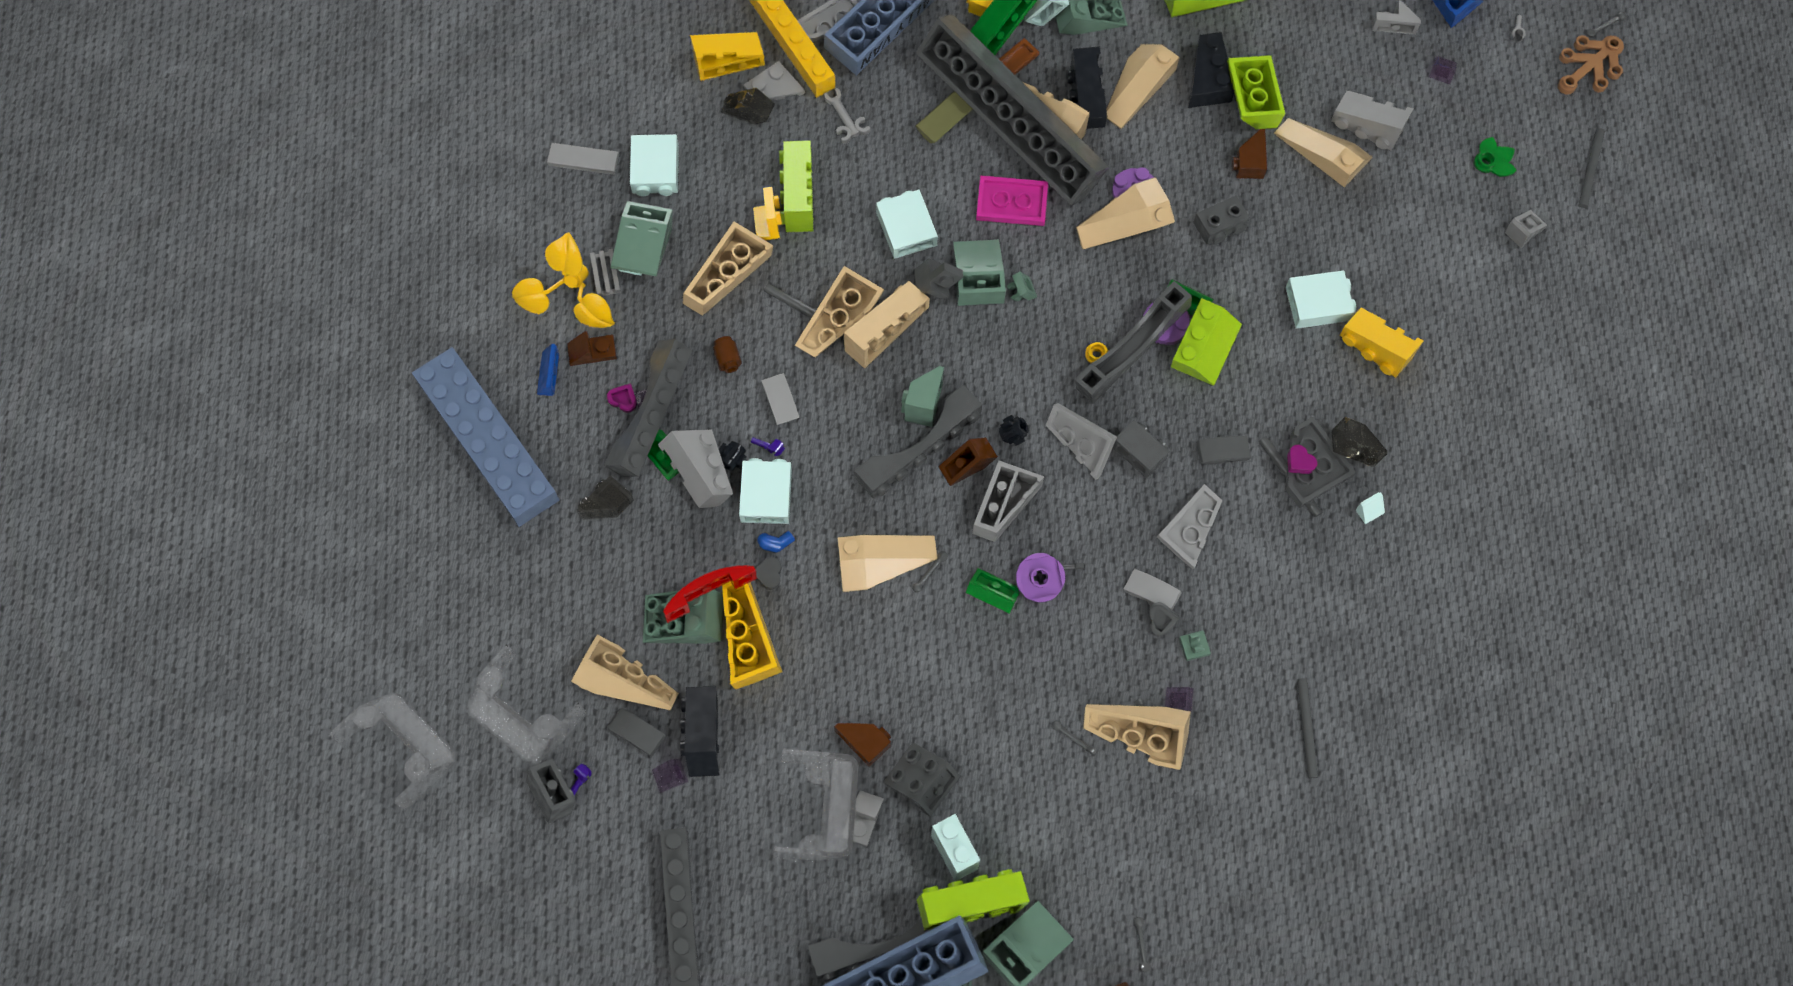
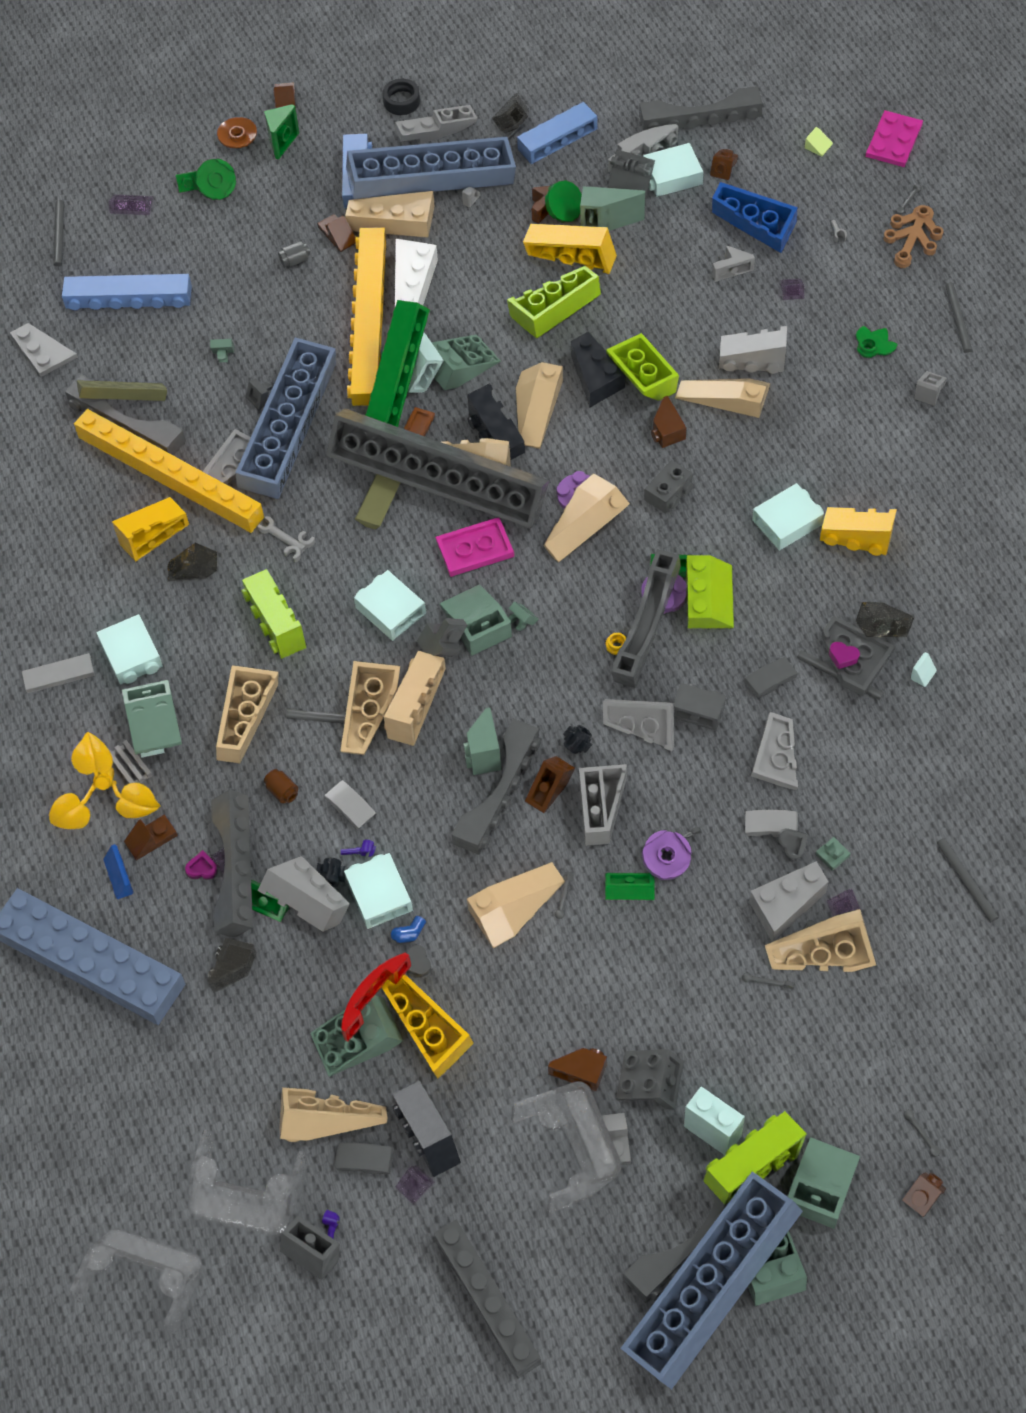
camera: 20 degrees left, 10 degrees down
(767, 216) = (260, 651): yellow bracket -> none
(776, 83) = (208, 533): light grey wing -> none
(1130, 670) = (787, 898): none -> light grey wedge

